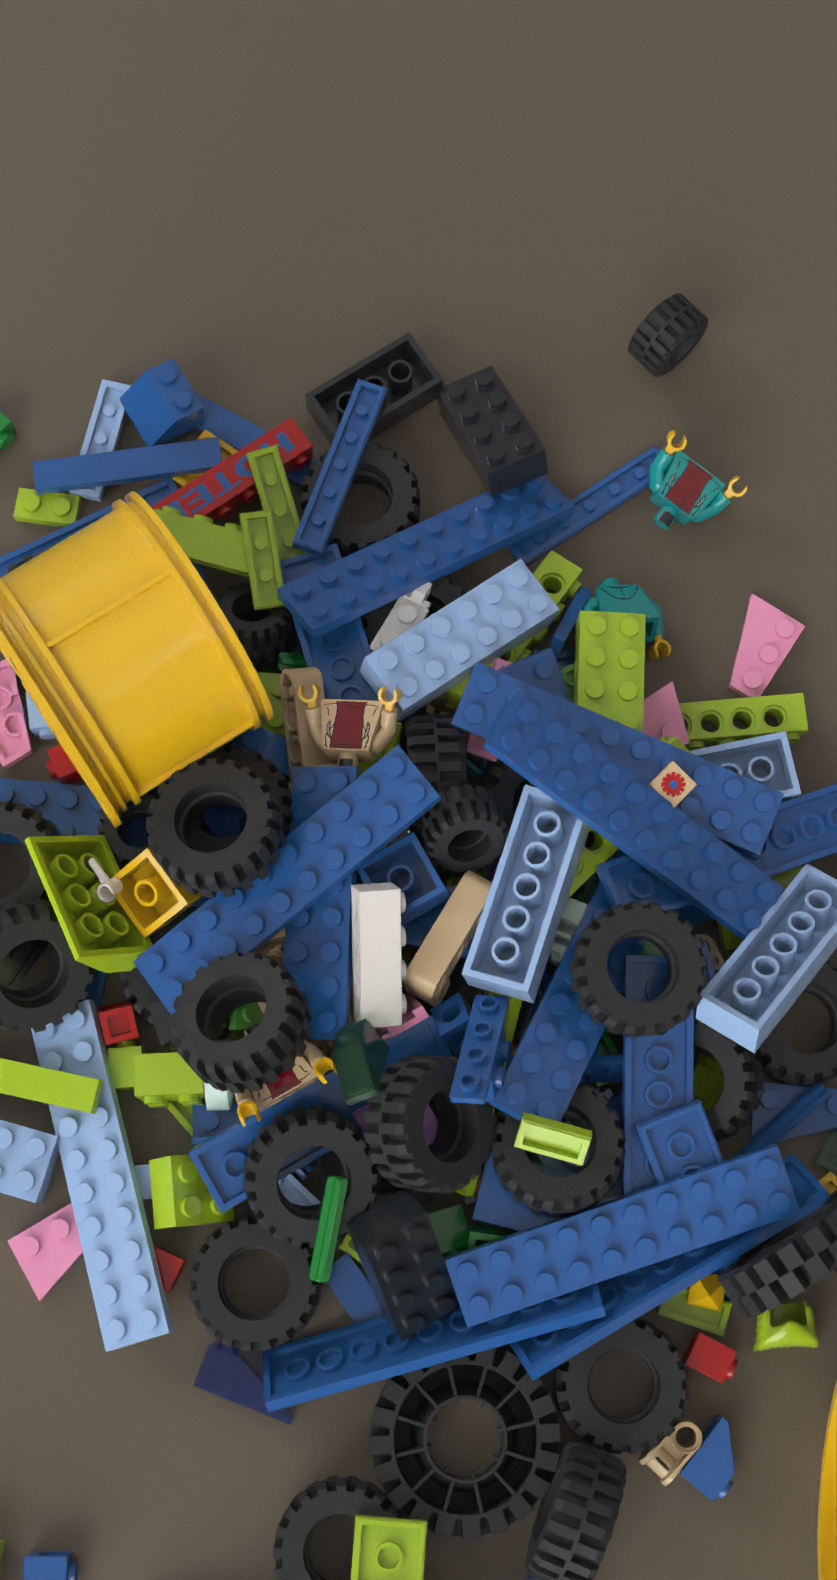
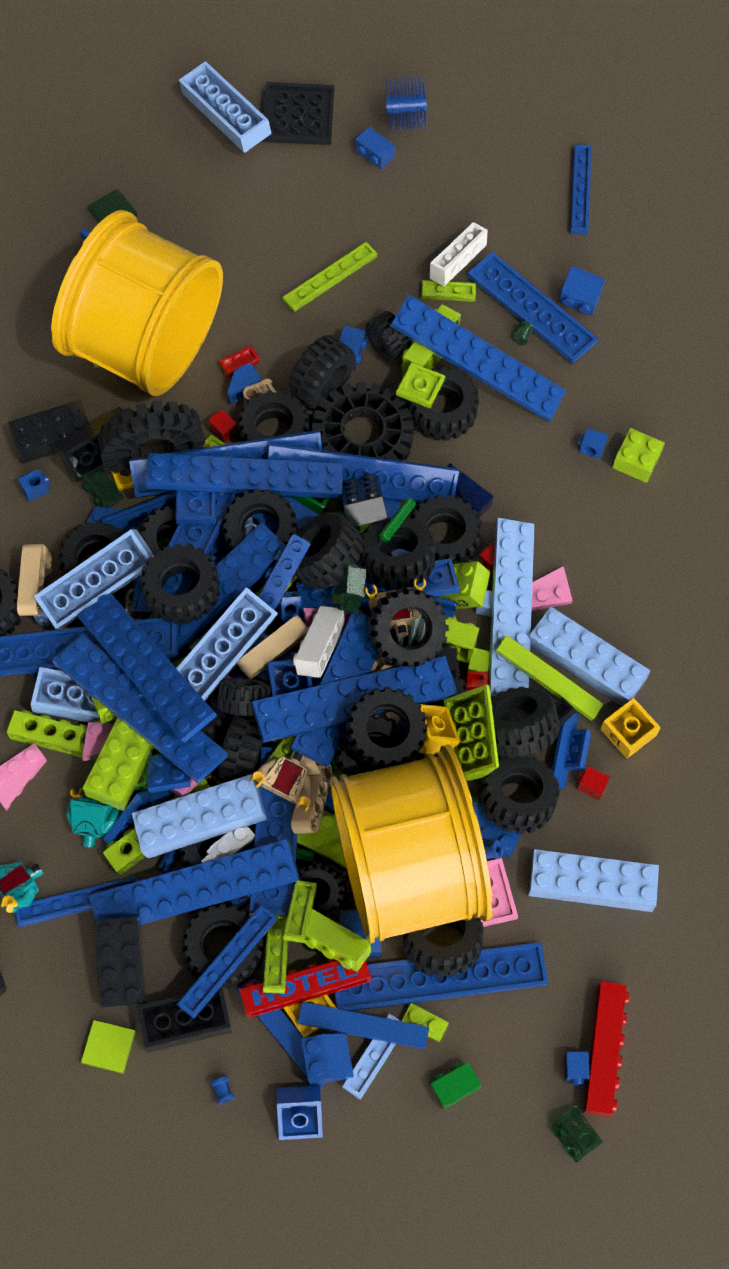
camera: 160 degrees left, 10 degrees down
(23, 769) = (494, 850): none -> blue bush
(108, 887) = (457, 734): white hand -> none
(180, 336) = (299, 1112): none -> blue slope
(289, 332) = (222, 1090): none -> blue bush
(463, 338) = (108, 1046): none -> lime tile
(553, 1138) = (262, 519): lime tile -> none
(672, 783) = (115, 678): tan tile -> none
(736, 1508) = (238, 359): none -> red plate

